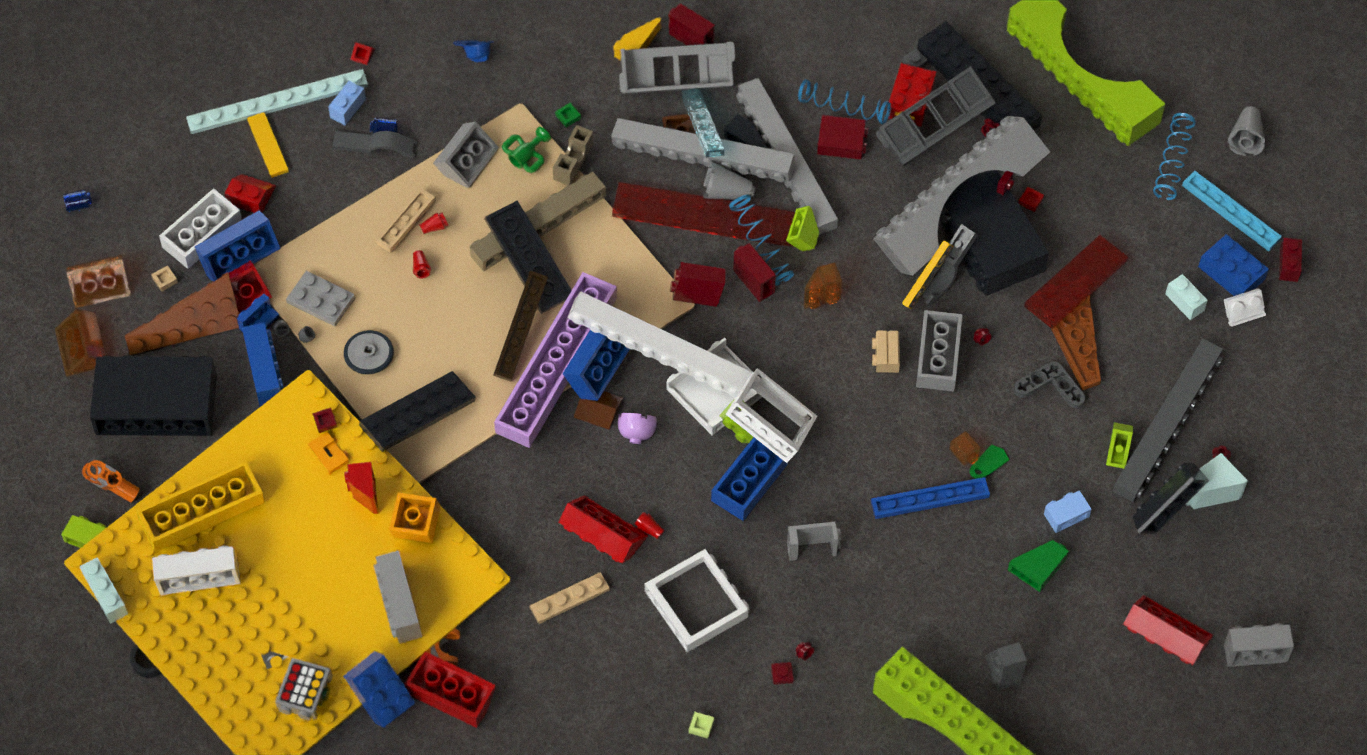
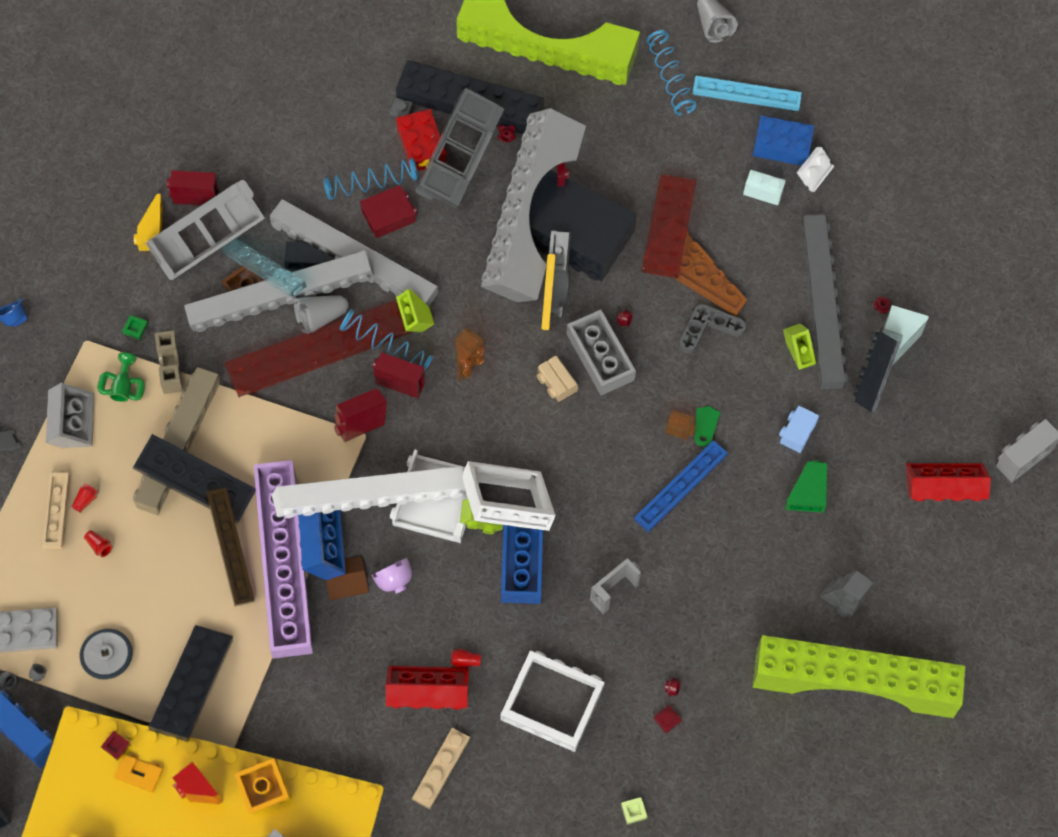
camera: 35 degrees left, 5 degrees up
(1031, 199) = (581, 175): red plate -> none
(1290, 259) = (822, 108): dark red brick -> none

